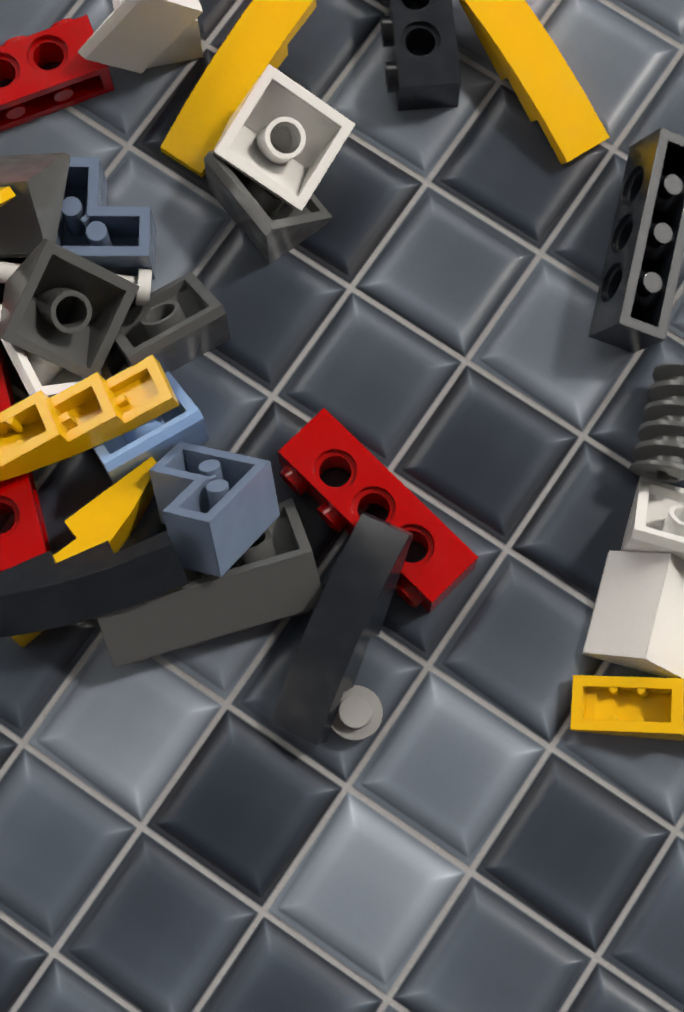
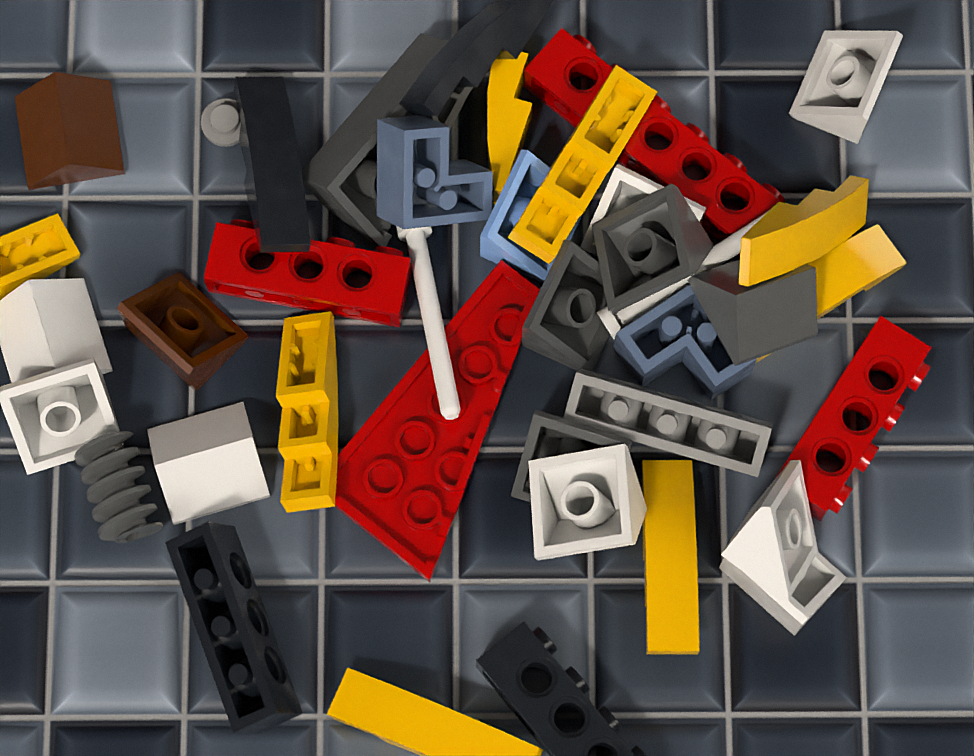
camera: 145 degrees right, 0 degrees up
(159, 171) = (668, 422): none -> light grey brick
(303, 373) = (432, 319): none -> white bar
(371, 304) = (407, 461): none -> red wing
(459, 387) = (309, 412): none -> yellow slope
(510, 805) = (68, 130): none -> reddish brown slope
(523, 536) = (182, 328): none -> reddish brown slope
(575, 412) = (207, 463): none -> white slope

